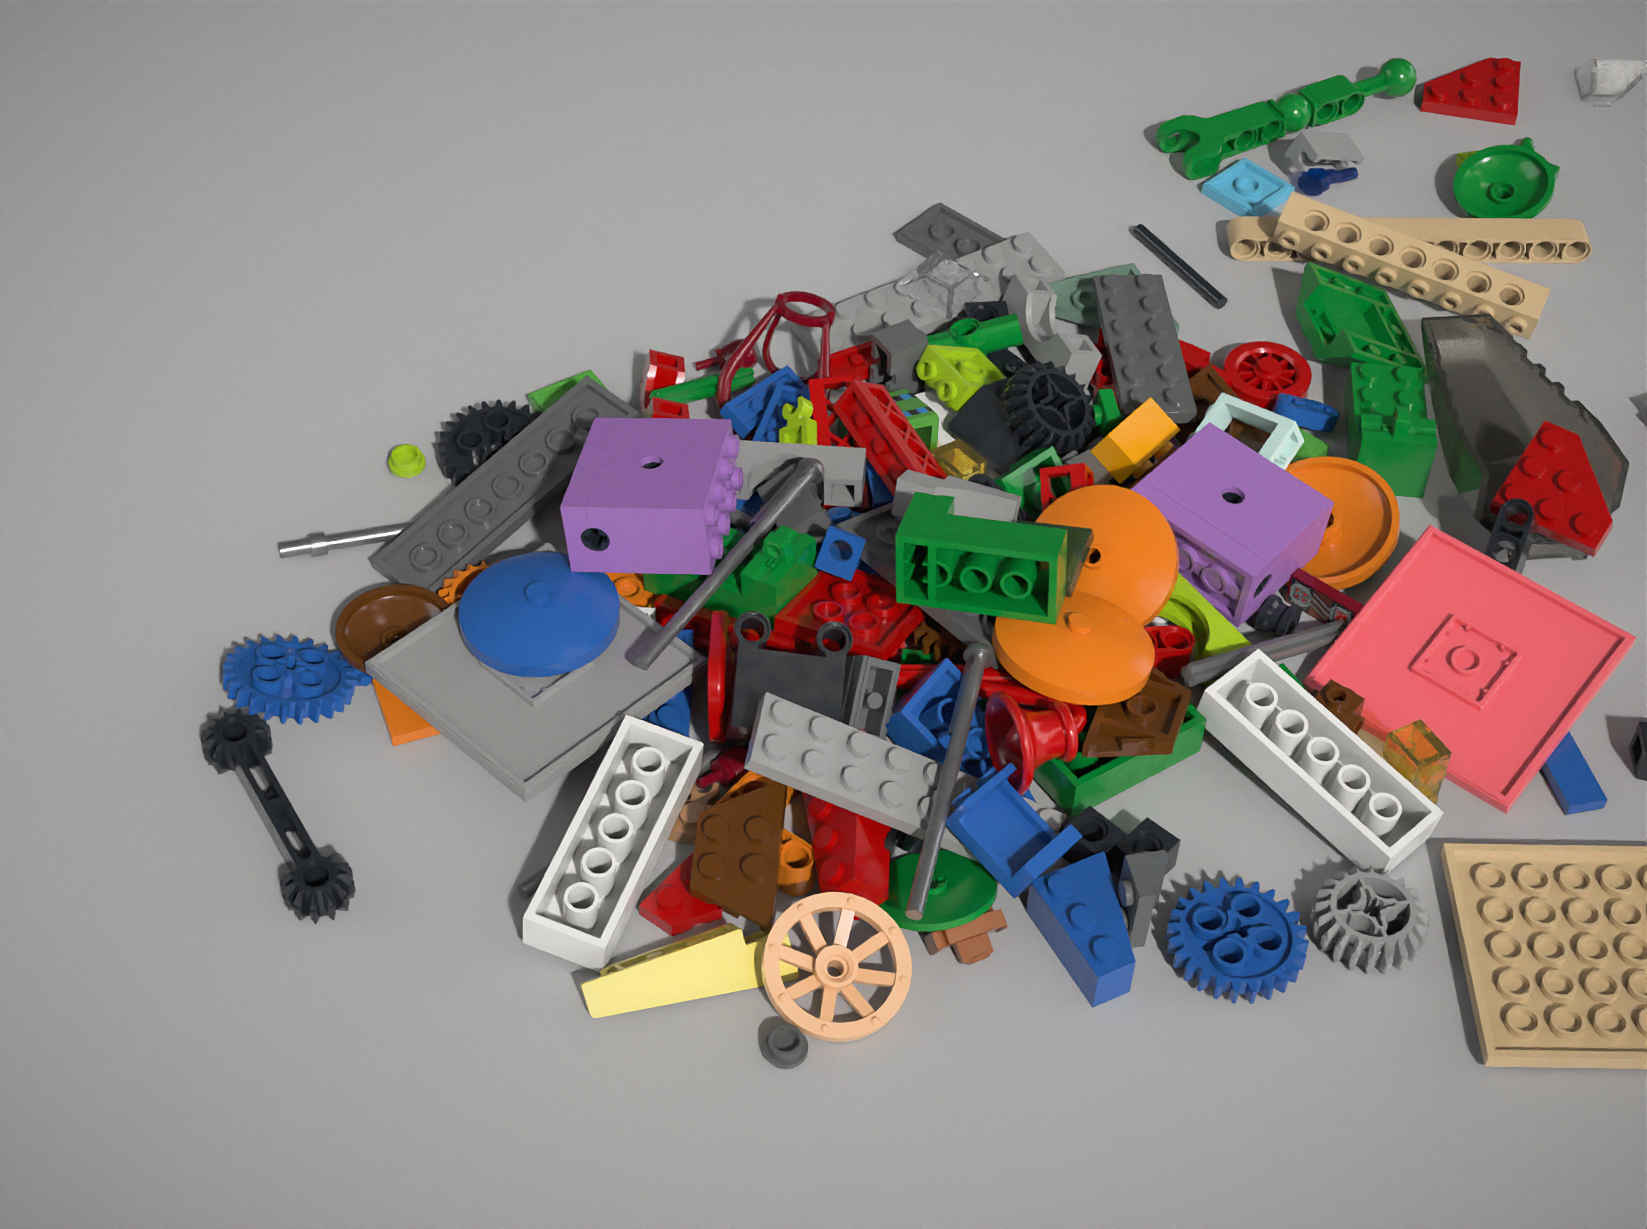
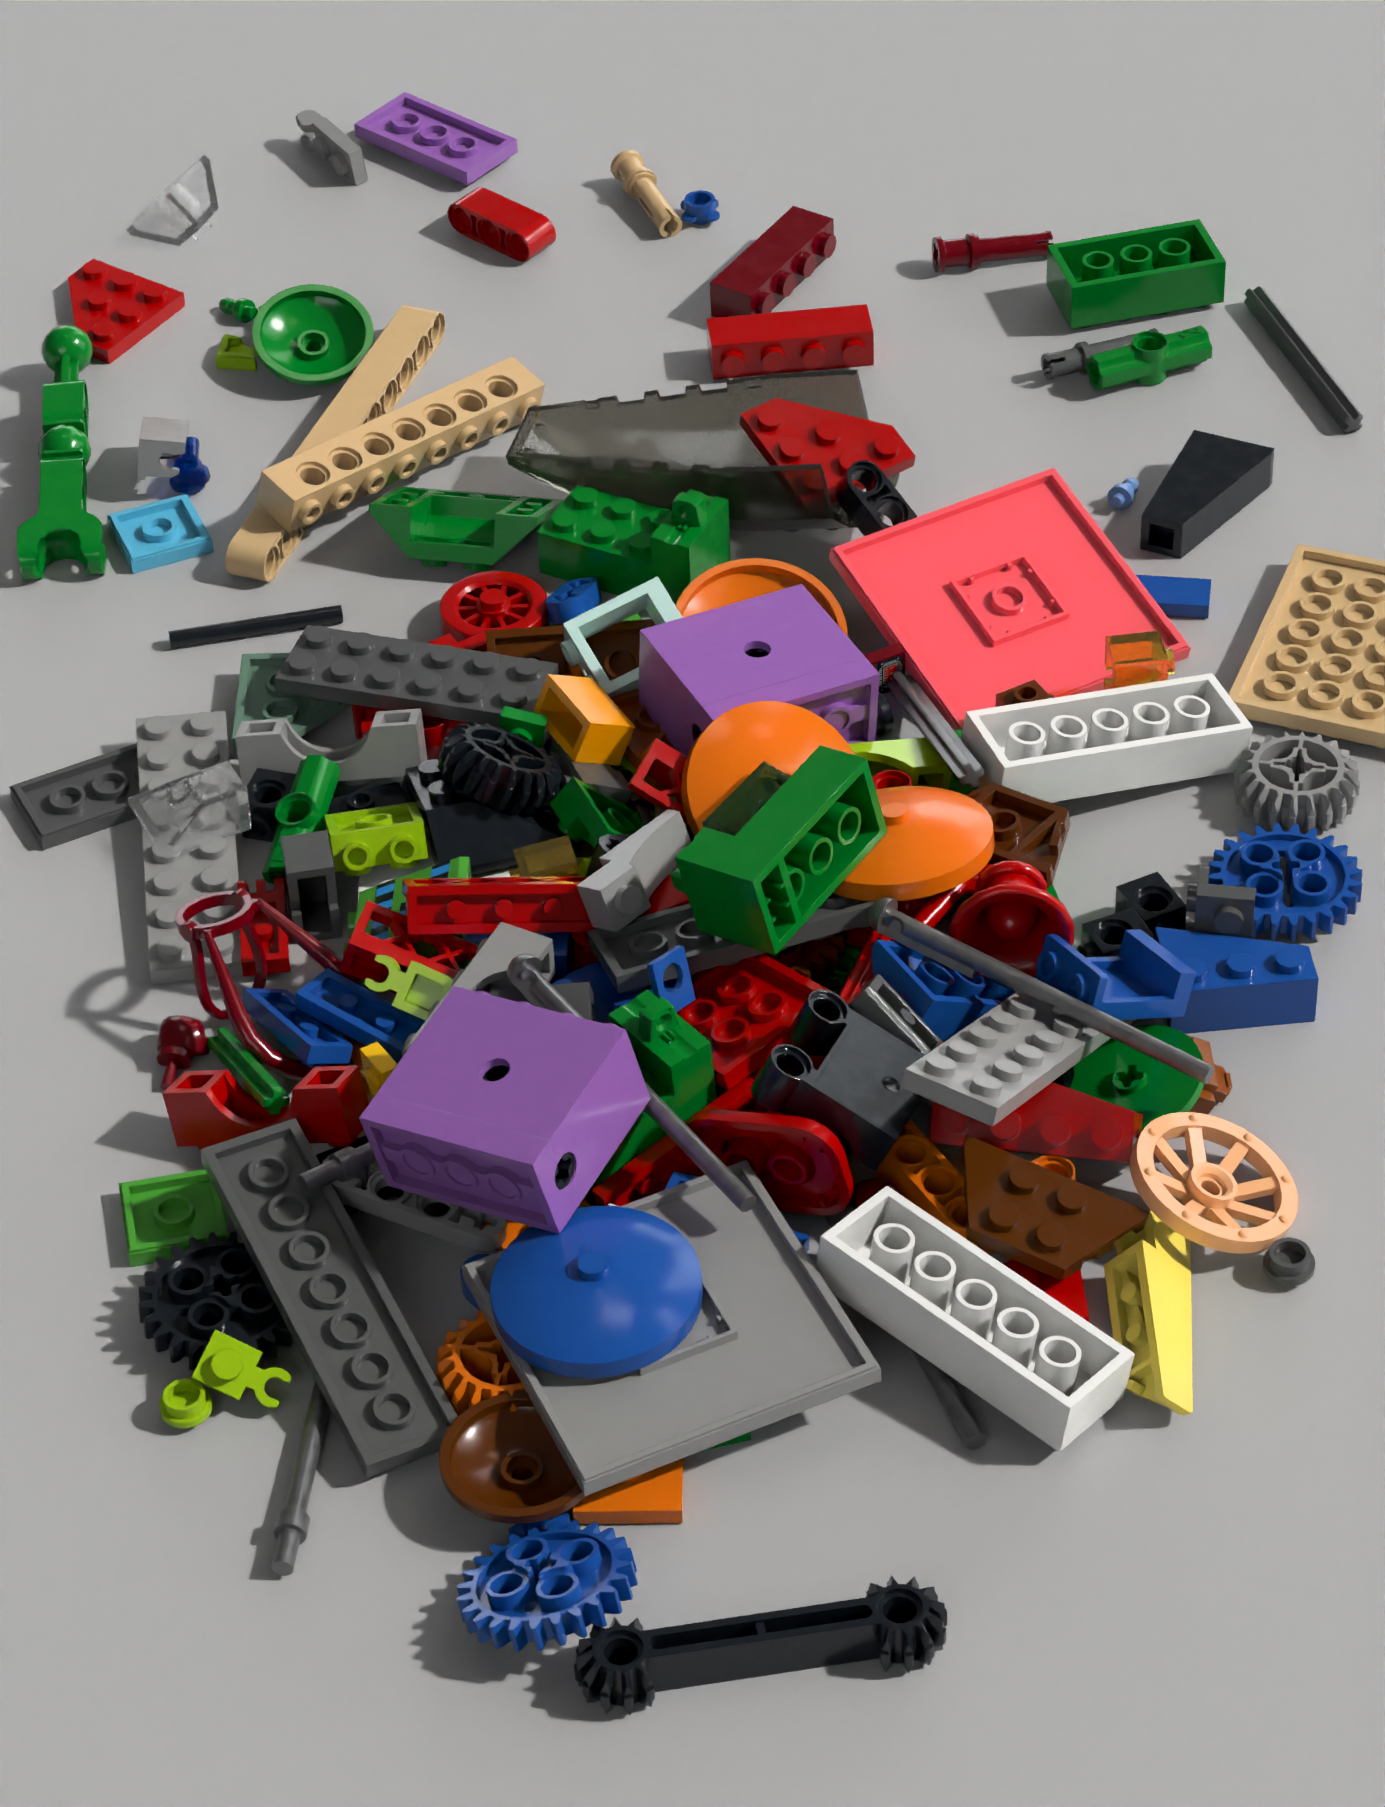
camera: 65 degrees left, 5 degrees down
(431, 469) = (232, 1367): none -> lime plate

